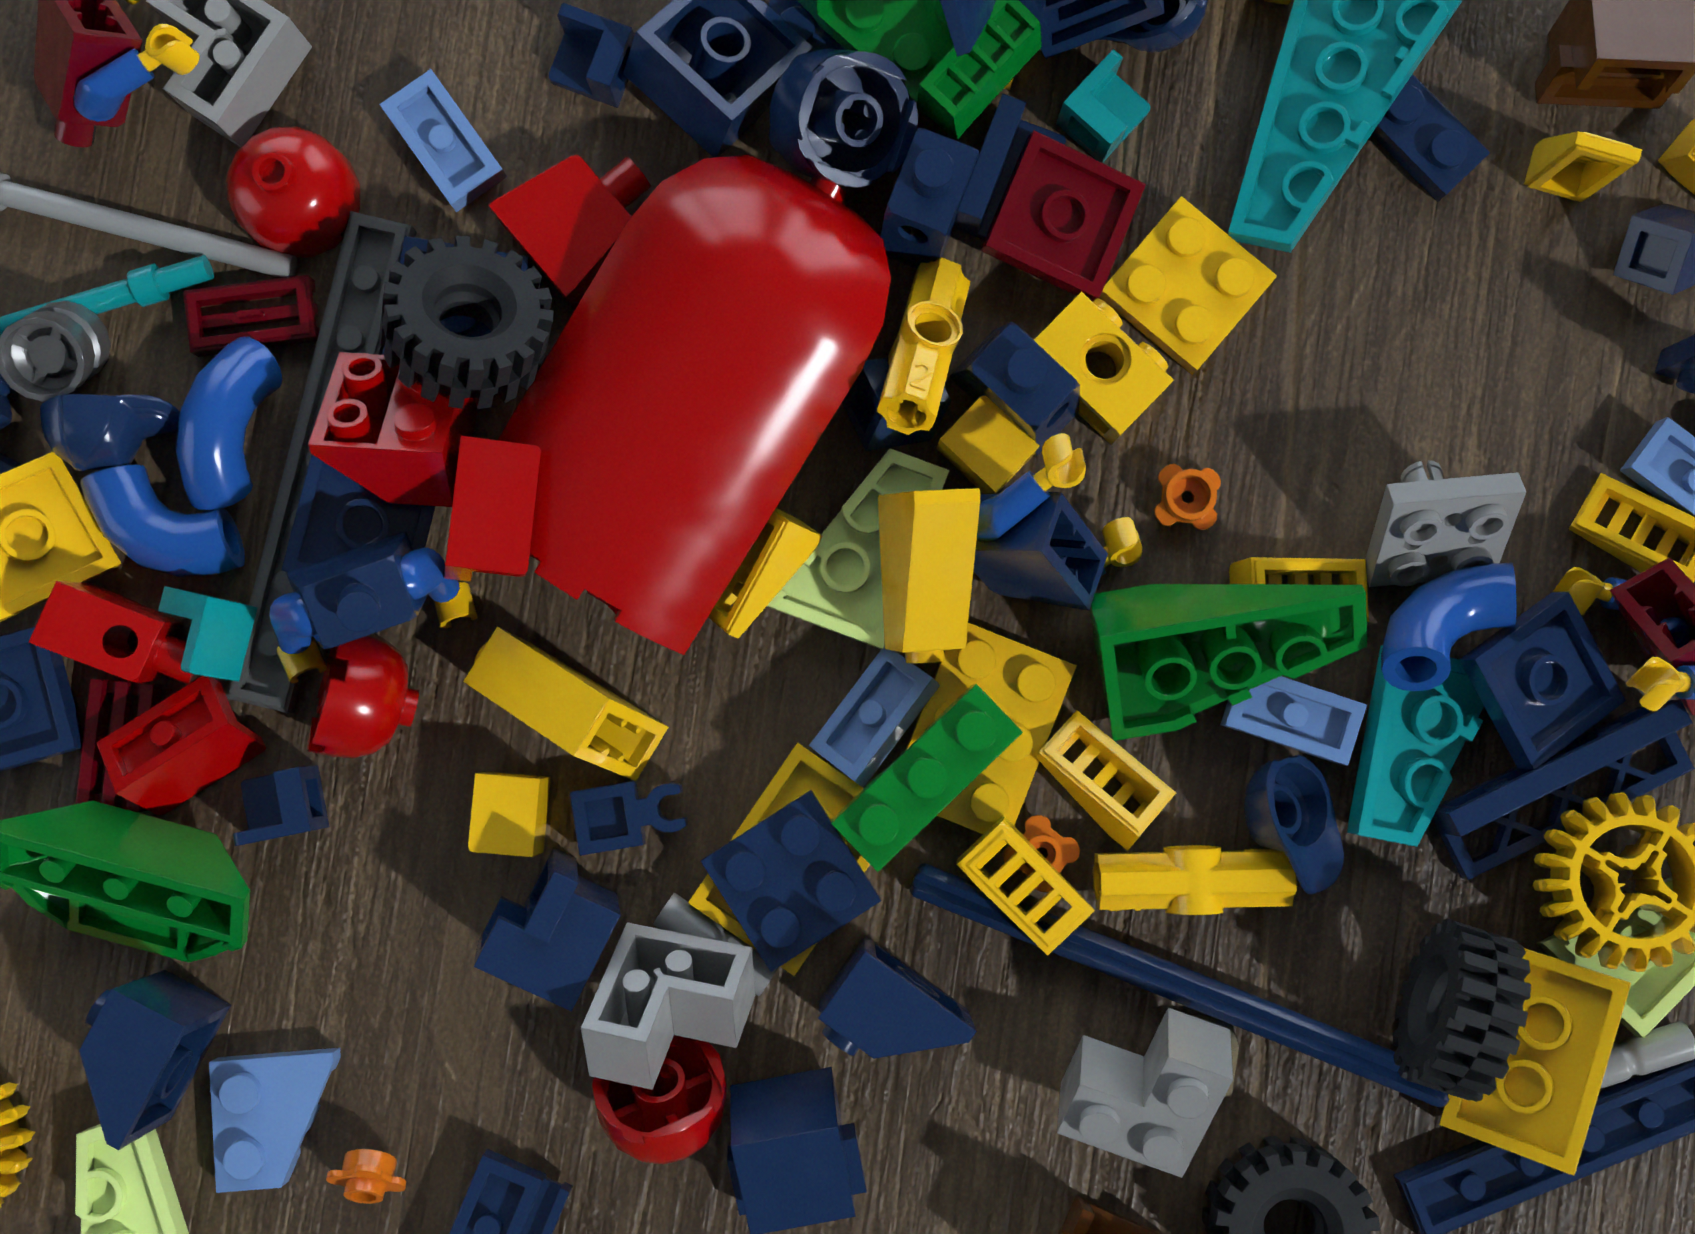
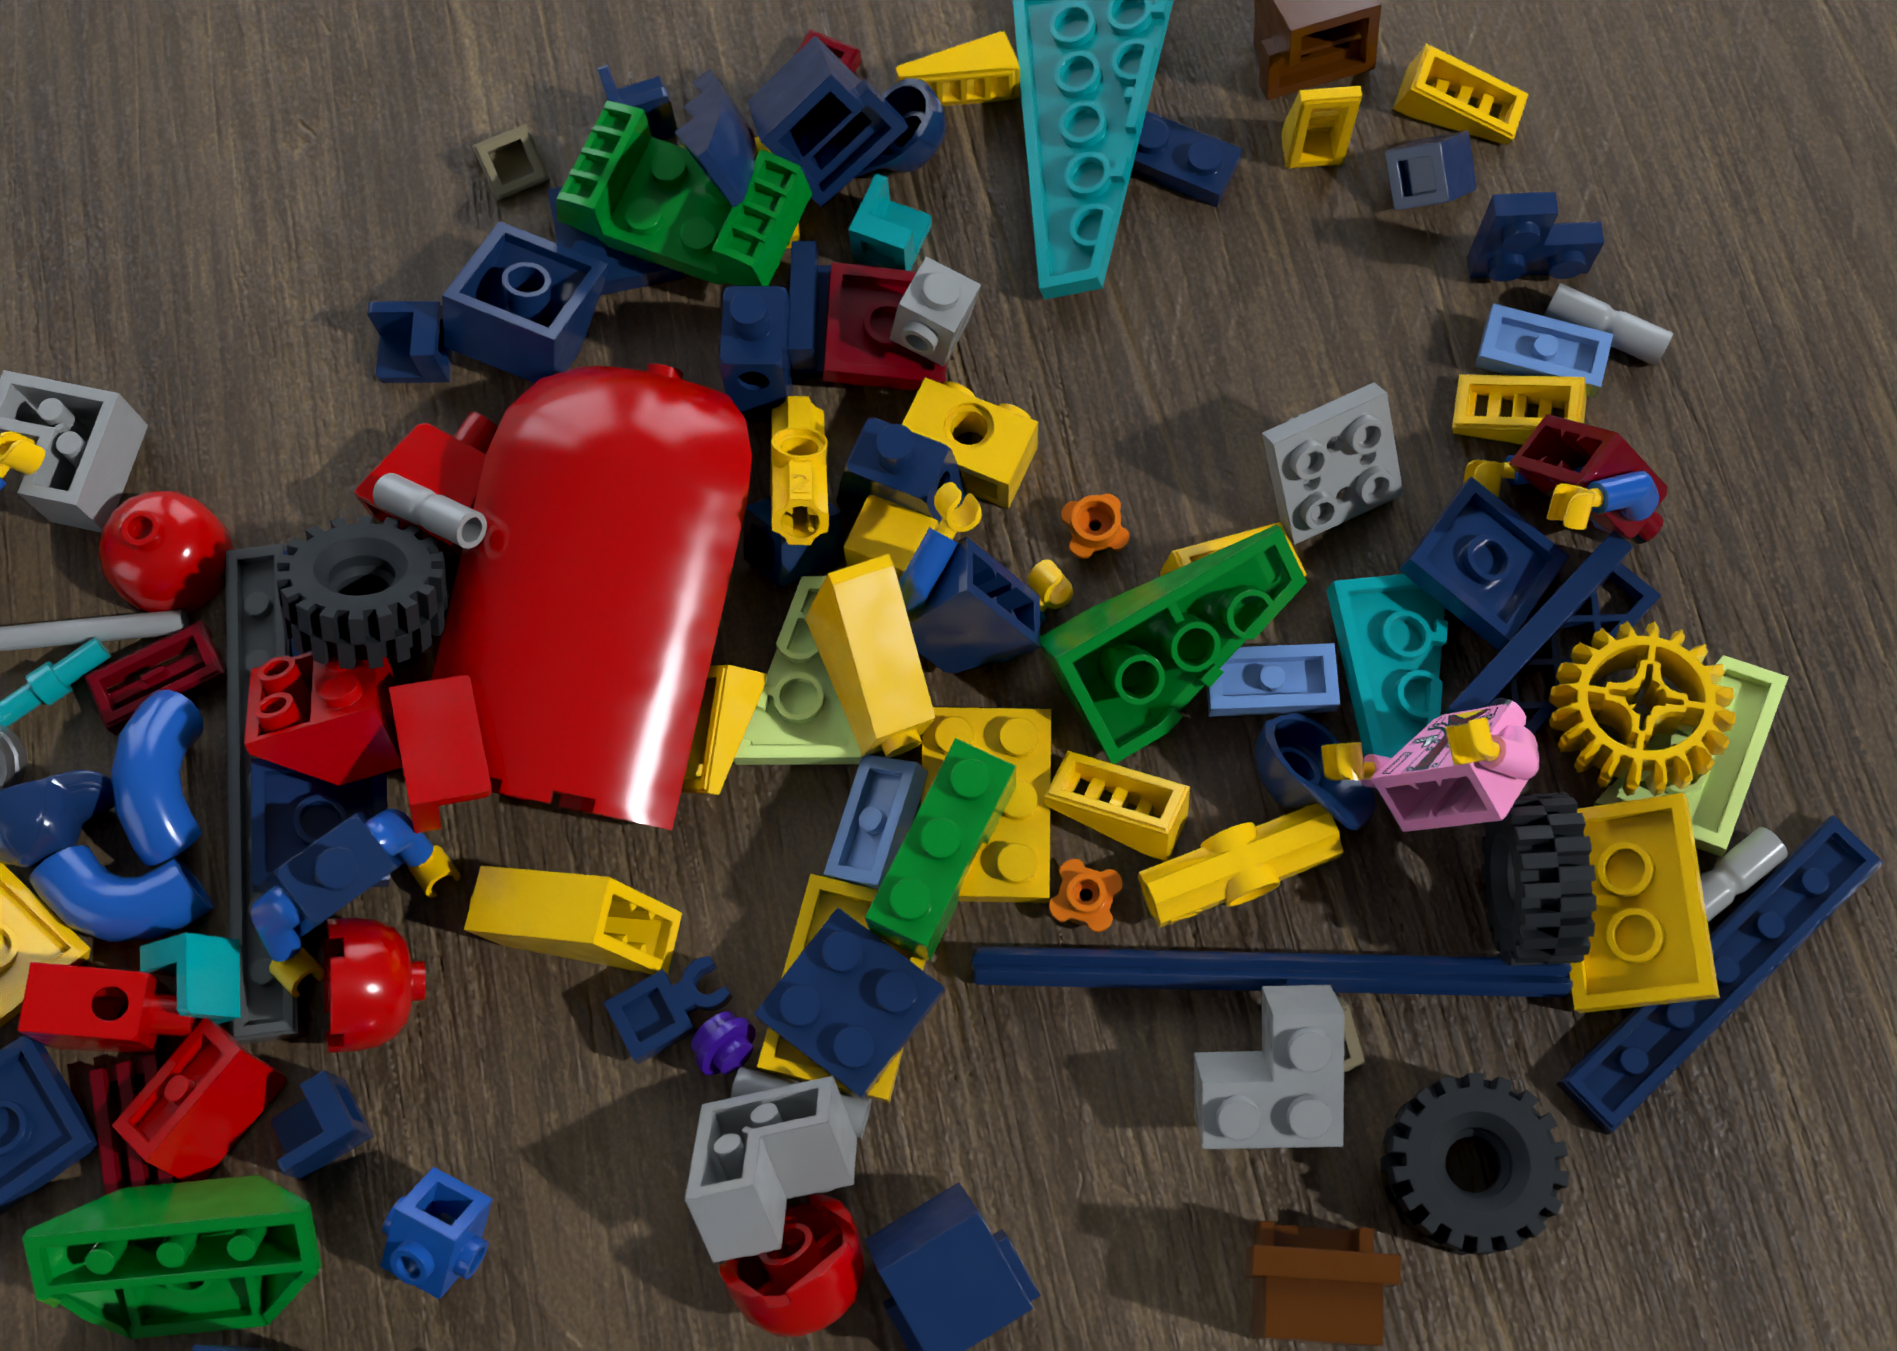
camera: 15 degrees left, 15 degrees down
(355, 948) = (436, 1233): none -> blue brick
(443, 140) = (295, 460): medium blue plate -> none
(509, 814) = (550, 1043): yellow panel -> none
(553, 937) = (635, 1139): dark blue plate -> none
(557, 265) = (431, 511): none -> light grey piece
(665, 868) = (723, 1043): none -> dark purple plate
(809, 112) = (654, 305): dark blue brick -> none
(889, 1007) = (988, 1084): dark blue slope -> none
(986, 847) = (1064, 888): yellow slope -> none
(1117, 228) = (934, 311): none -> light grey brick
(1187, 285) = (1023, 348): yellow plate -> none
(1428, 882) = (1452, 772): none -> bright pink torso
(1439, 614) = (1365, 533): blue cylinder -> none

